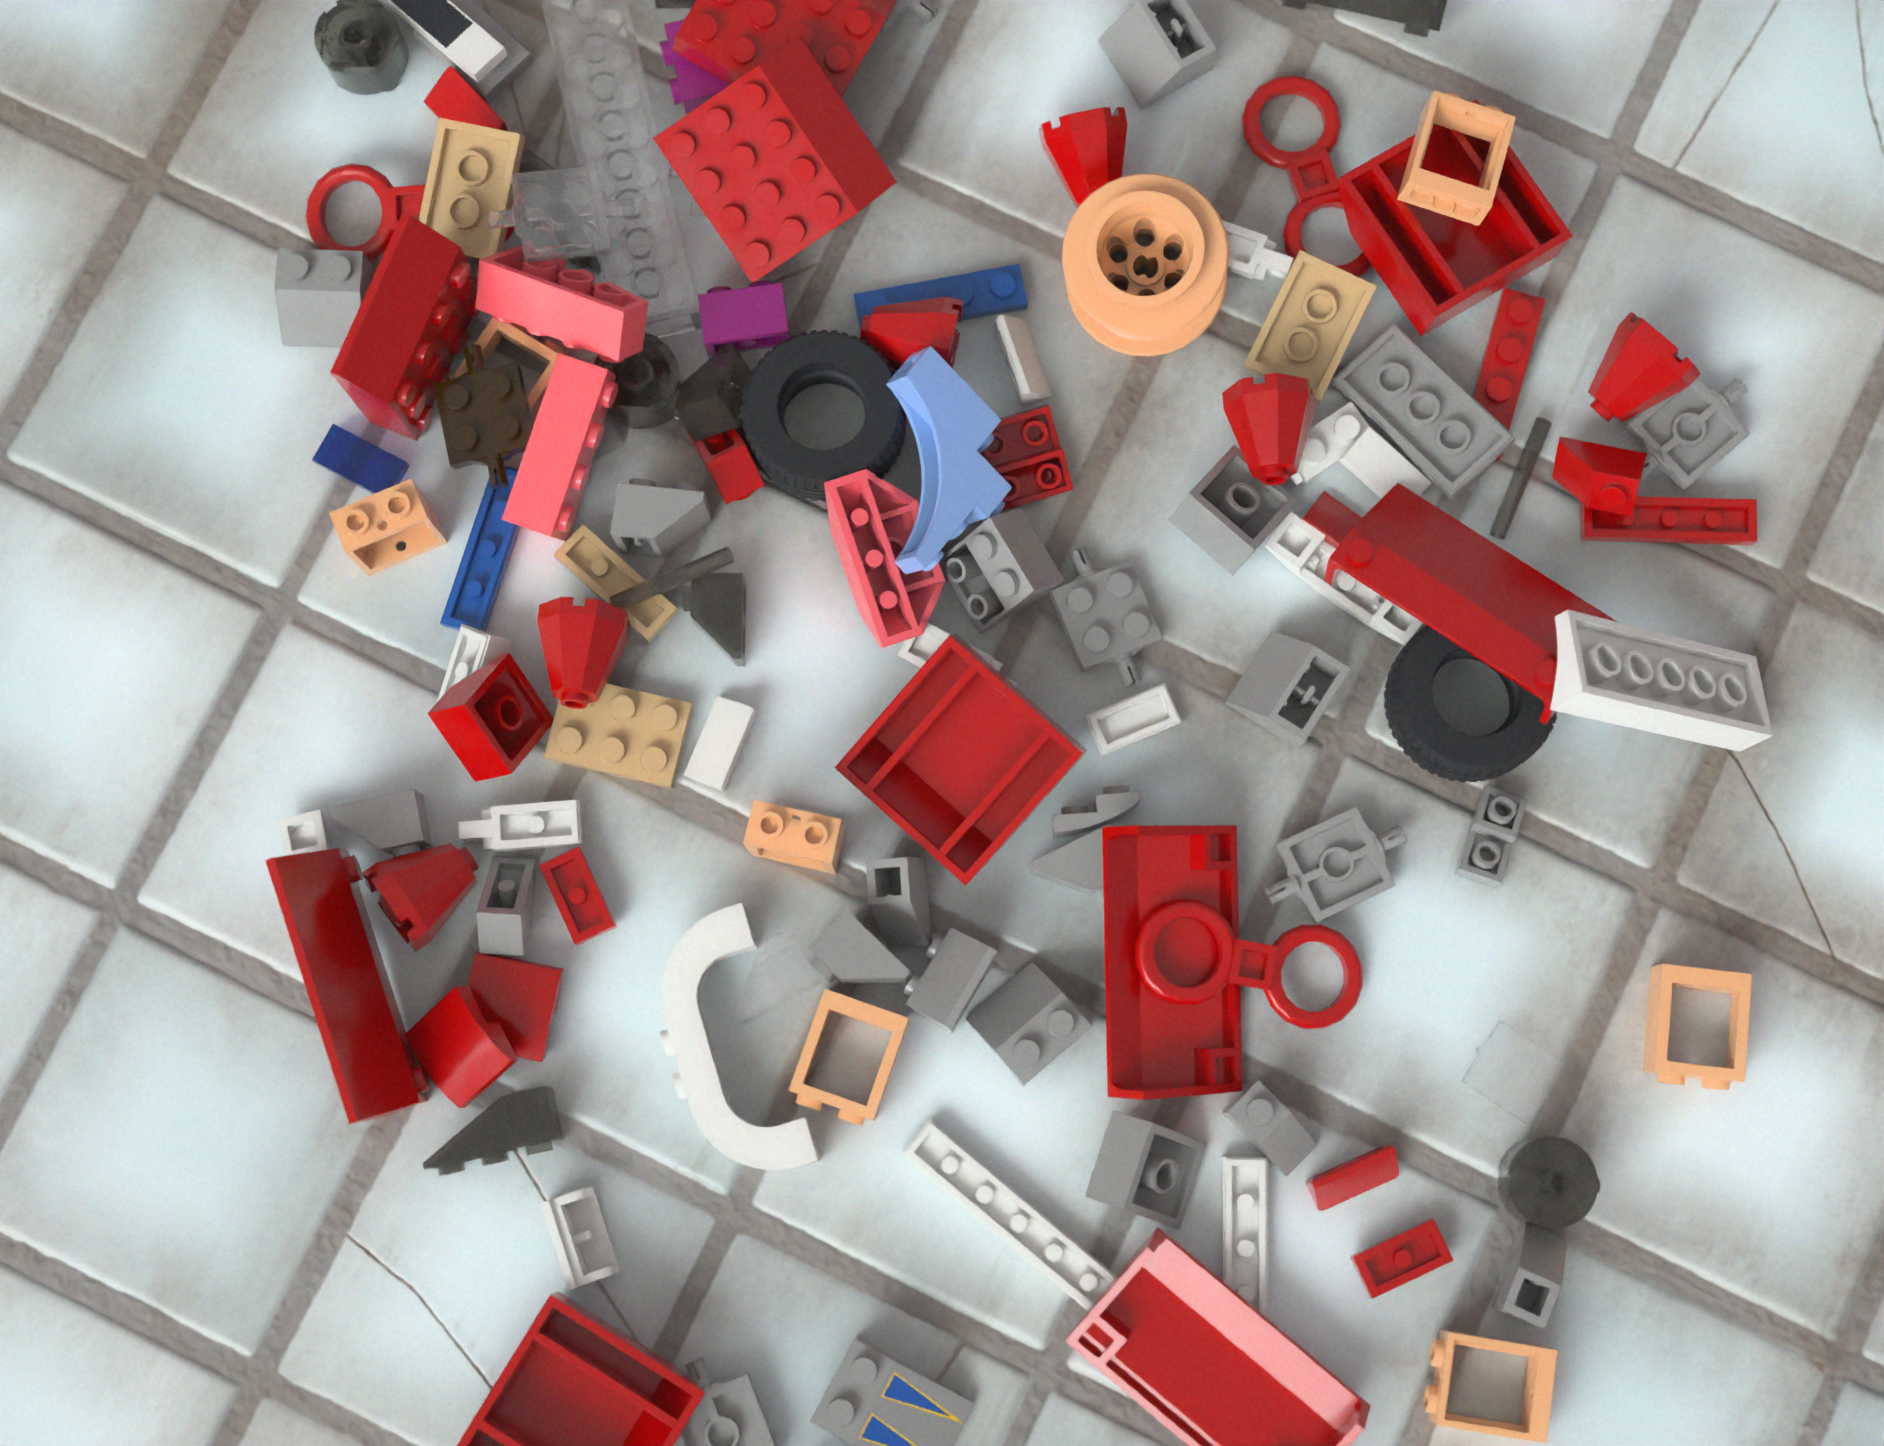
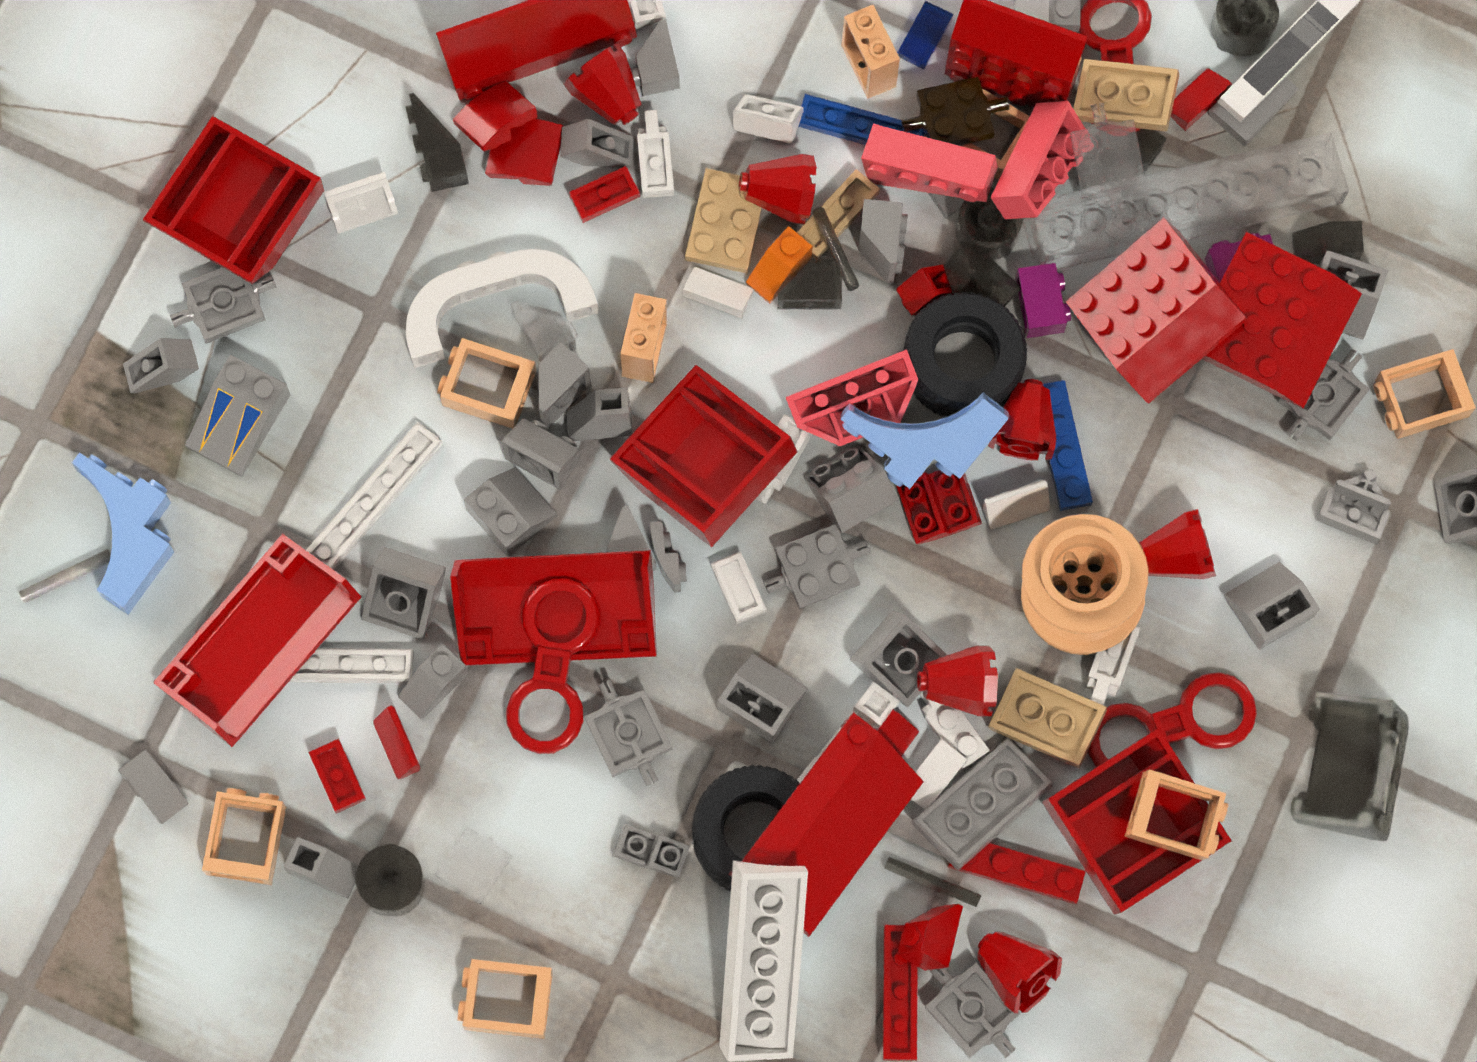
camera: 85 degrees right, 5 degrees down
(492, 719) = (731, 128): red slope -> none
(687, 658) = (780, 264): none -> orange slope

